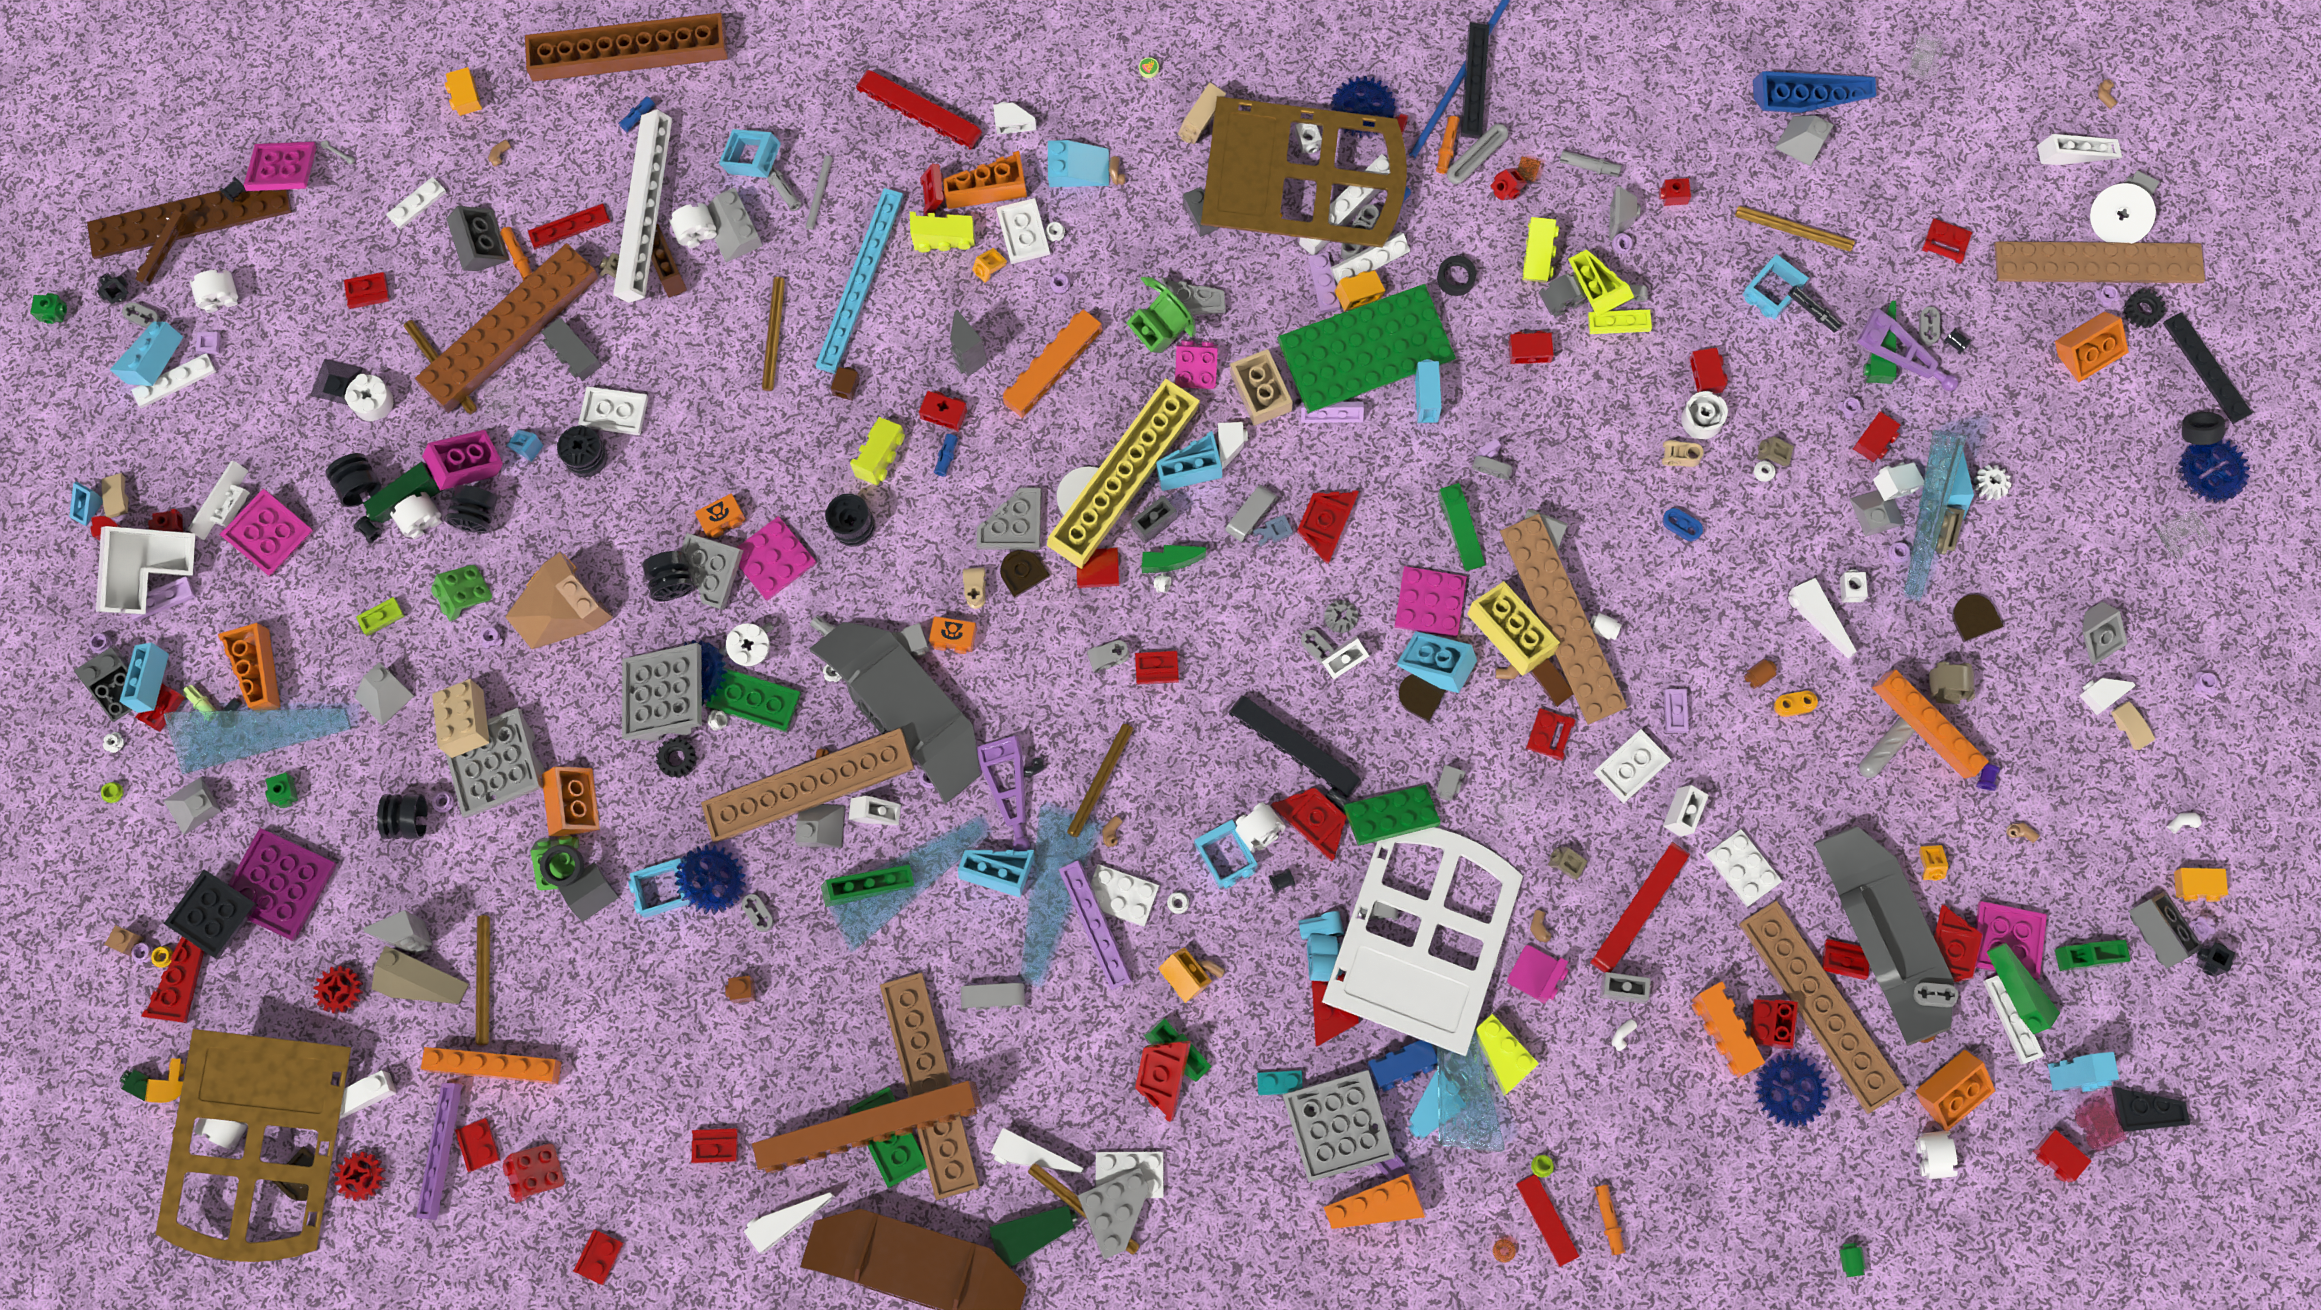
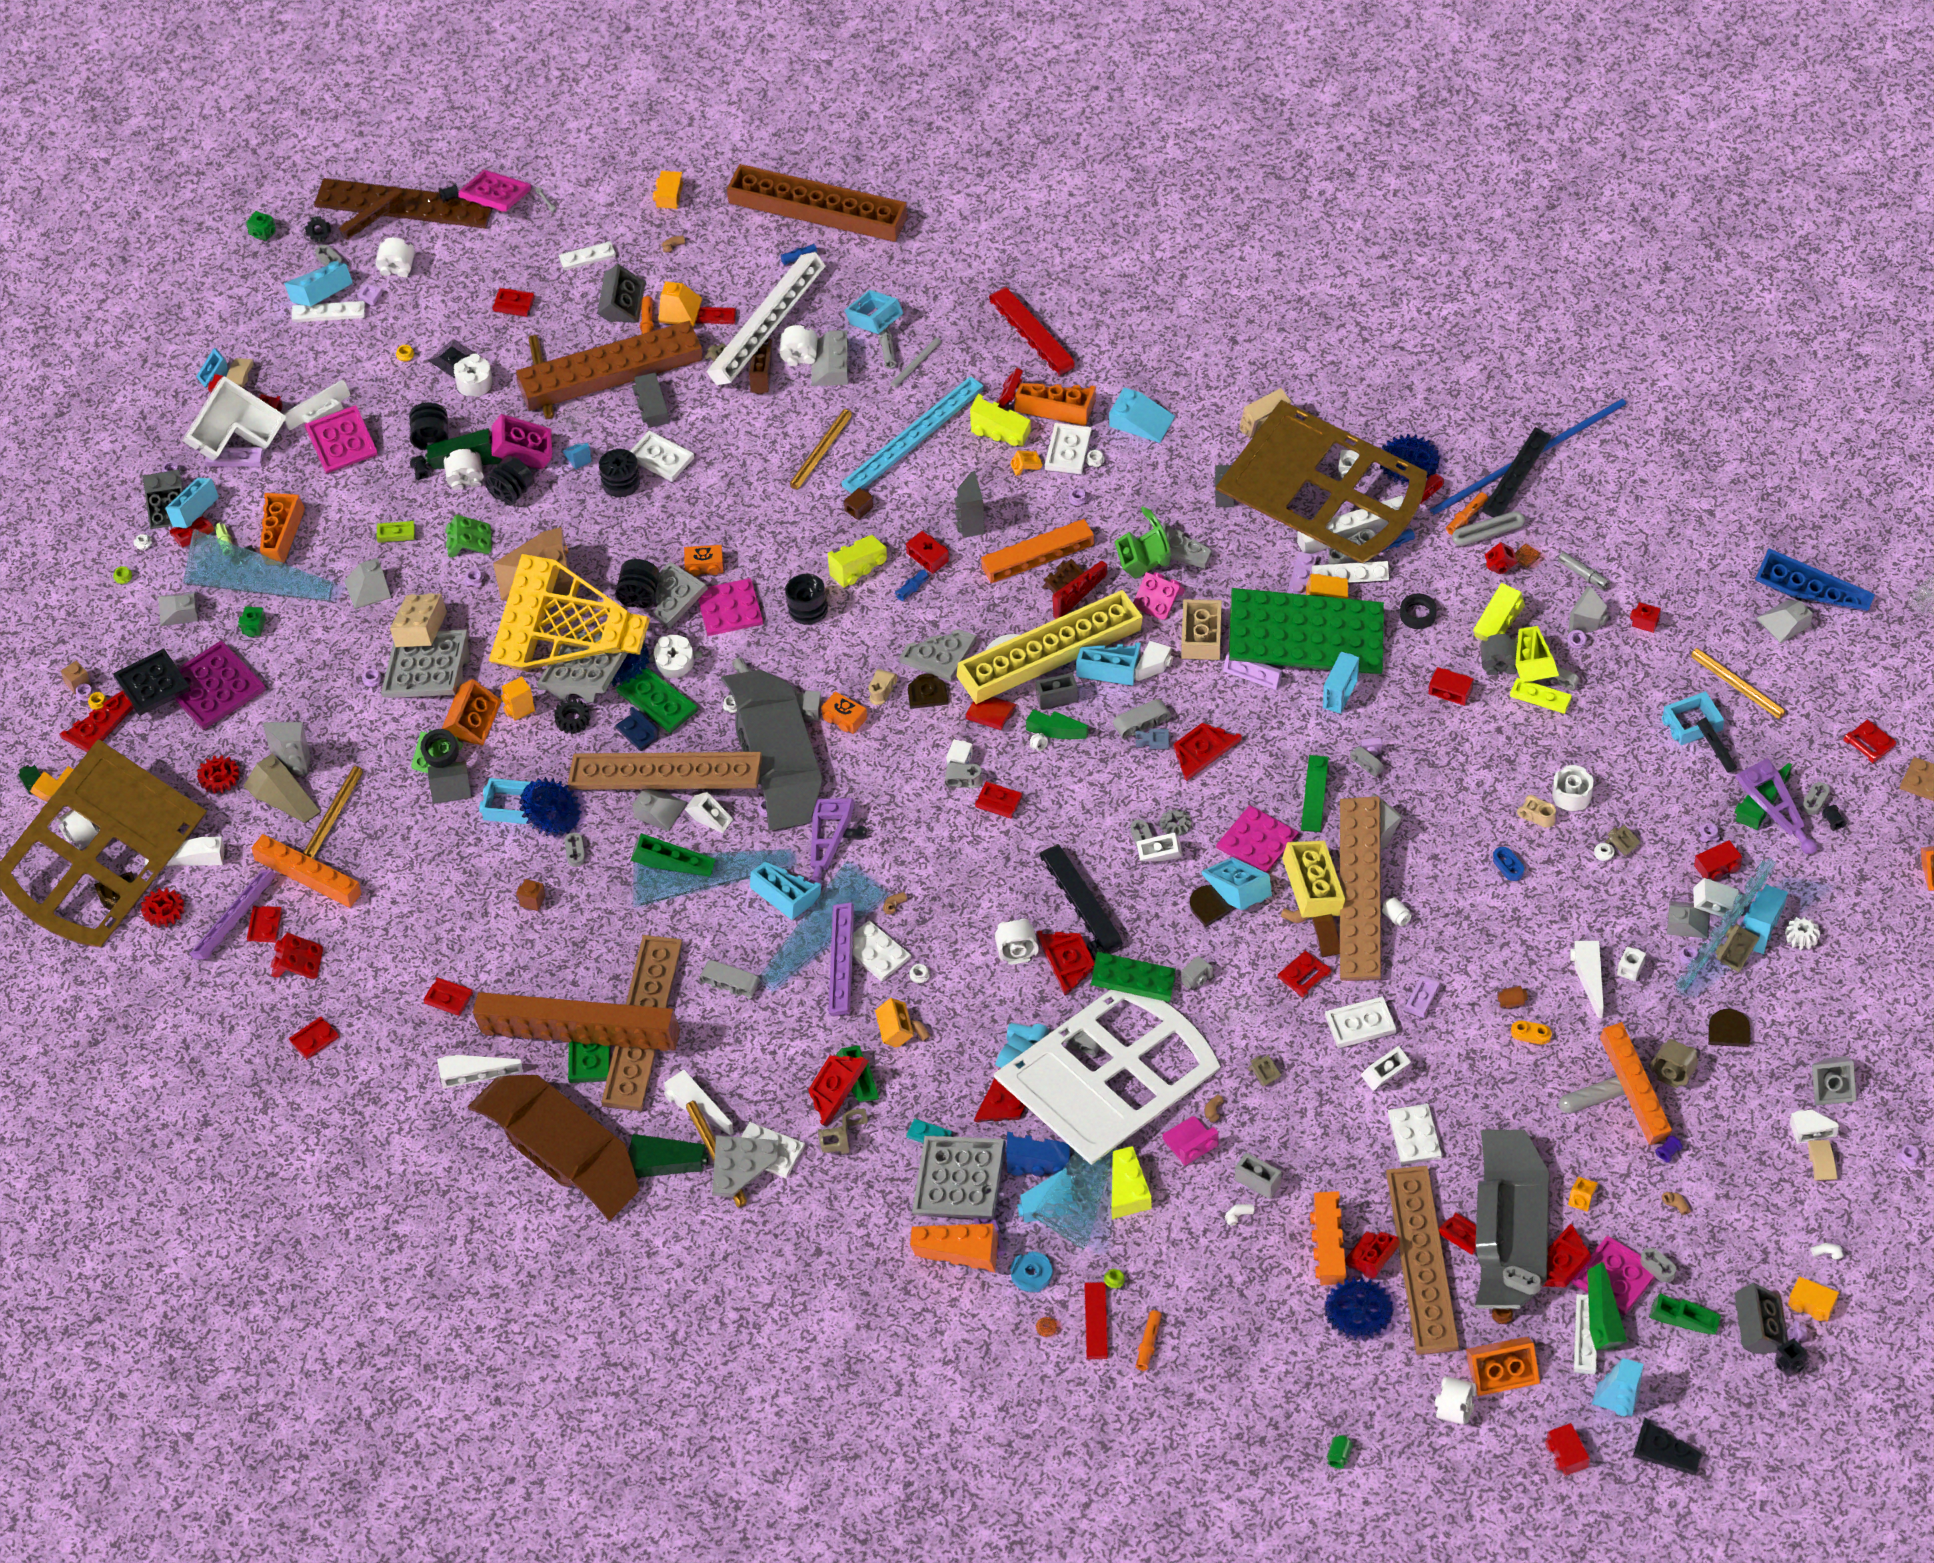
camera: 25 degrees right, 20 degrees down
(281, 392) = (404, 349): none -> yellow plate
(398, 816) = (333, 670): black wheel -> none
(544, 226) = (678, 304): none -> light orange slope
(572, 667) = (526, 613): none -> yellow wing
(611, 766) = (517, 699): none -> light orange brick
(717, 720) = (619, 702): white plate -> none
(751, 744) = (638, 729): none -> dark blue bracket
(1012, 119) = (1105, 364): white slope -> none
(1093, 632) = (959, 752): none -> white brick
(1094, 384) = (1065, 574): none -> reddish brown bracket
(1100, 780) = (904, 861): pearl gold axle -> none
(1114, 171) = (1169, 432): medium nougat arm -> none
(1114, 398) = (1077, 589): none -> red wing
(1148, 67) = (1242, 369): tile -> none
(1196, 1134) = (841, 1132): none -> dark tan piece
(1214, 836) = (968, 936): medium azure window -> none
(1281, 880) = (1014, 990): black bush -> none
(1468, 1186) = (1028, 1282): none -> dark azure plate
(1640, 908) = (1308, 1124): red beam -> none
(1708, 370) = (1596, 758): red brick -> none
(2045, 919) = (1658, 1265): none -> light grey beam
(2099, 1125) = (1615, 1440): clear pink brick -> none

